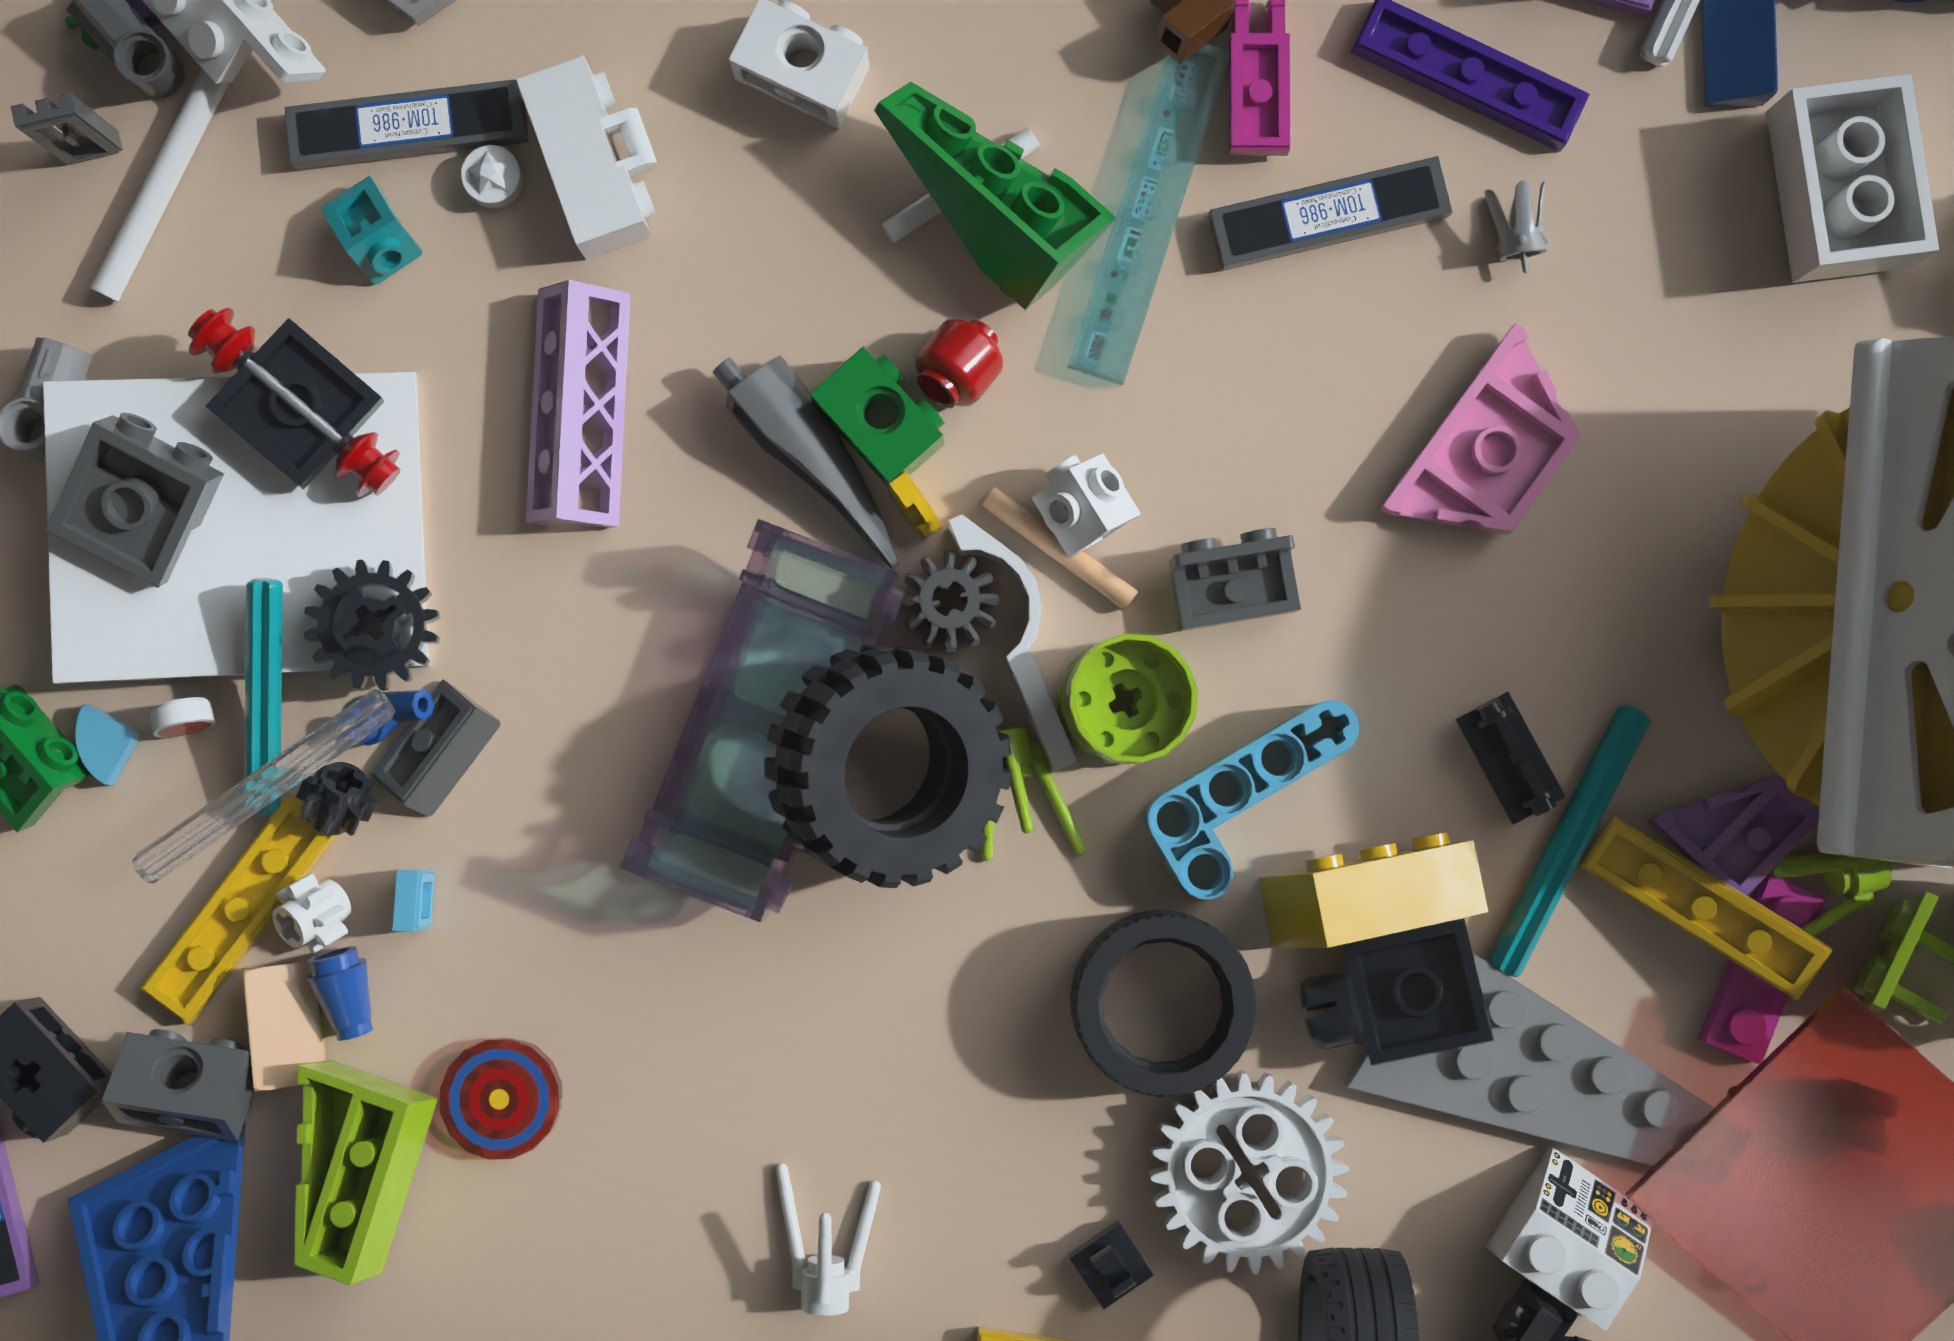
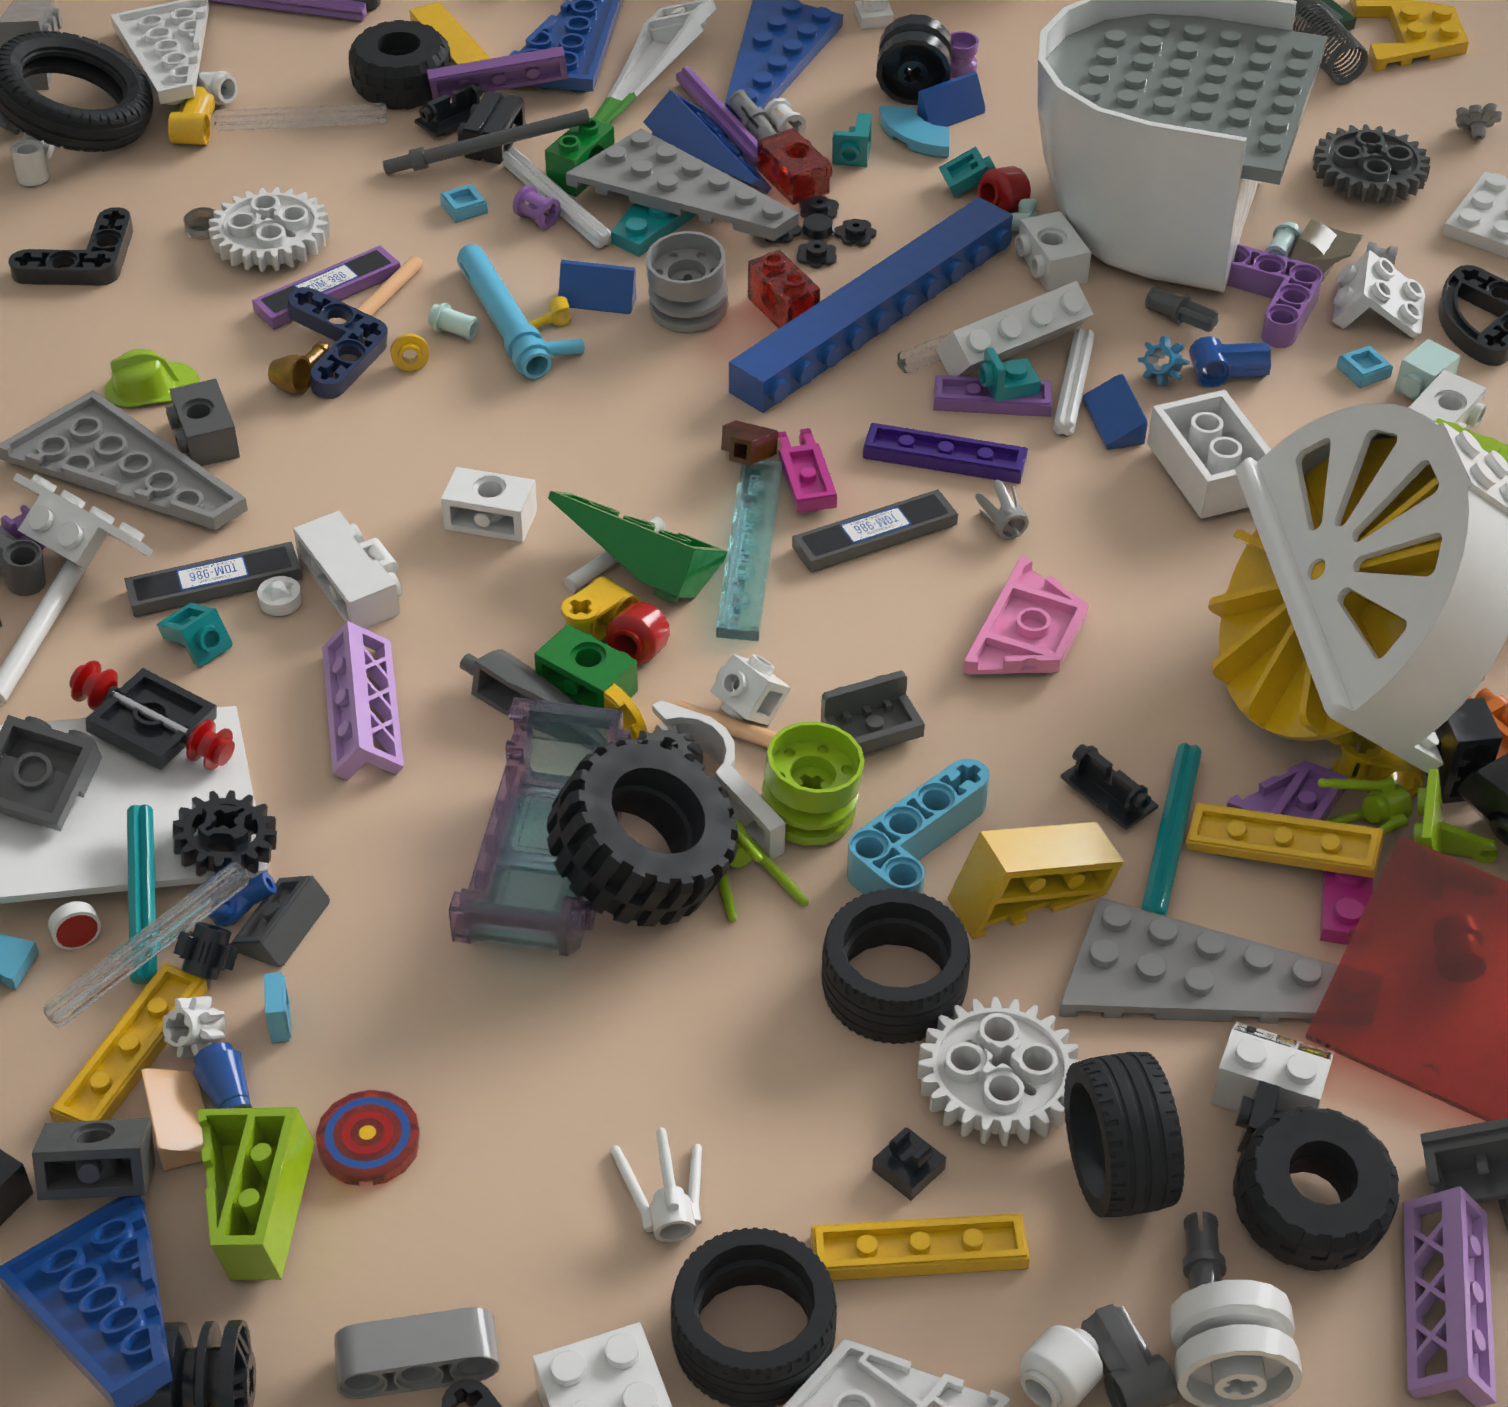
camera: 10 degrees left, 40 degrees down
(918, 302) = (596, 606): none -> yellow piece
(1402, 996) = (1077, 925): black plate -> none

